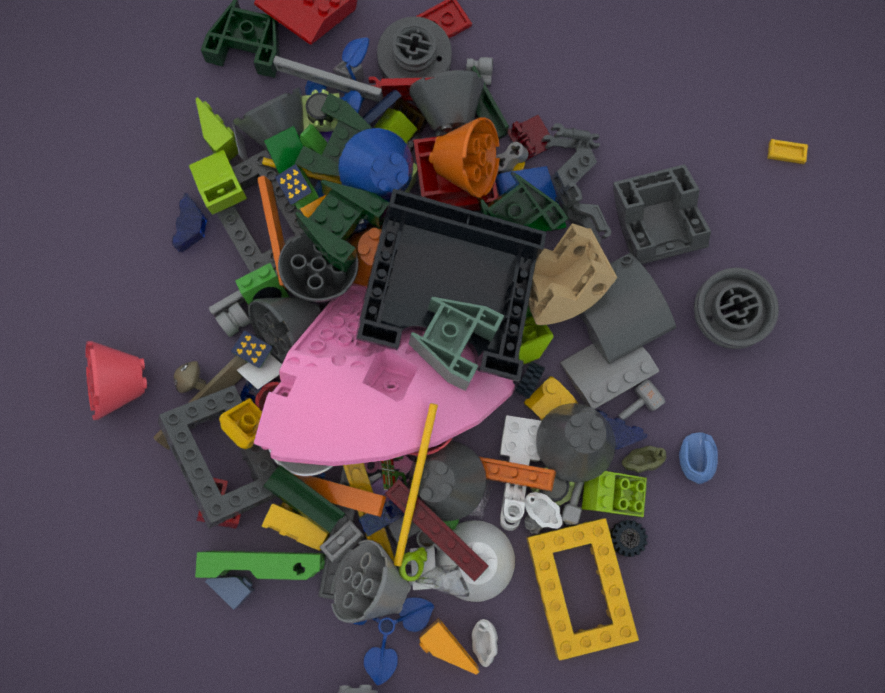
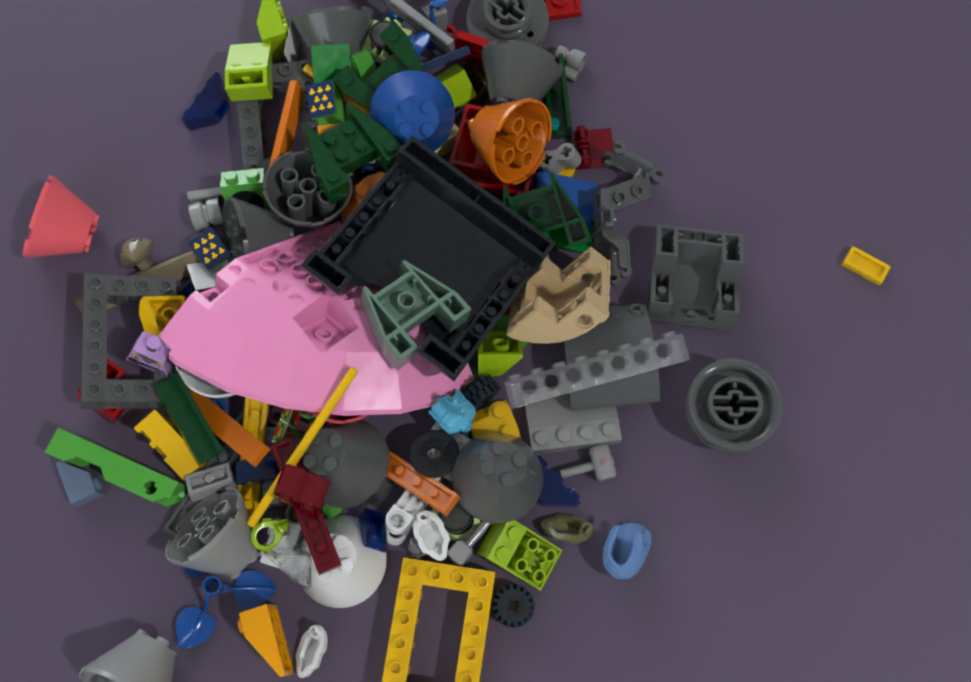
camera: 25 degrees right, 5 degrees down
(249, 459) = (151, 354): none -> lavender torso
(430, 518) = (301, 487): none -> dark red brick
(492, 522) = (373, 529): none -> clear blue slope
(509, 453) = (433, 467): none -> black wheel
(519, 405) = (454, 413): none -> medium azure helmet
(677, 284) = (676, 353): none -> clear brick

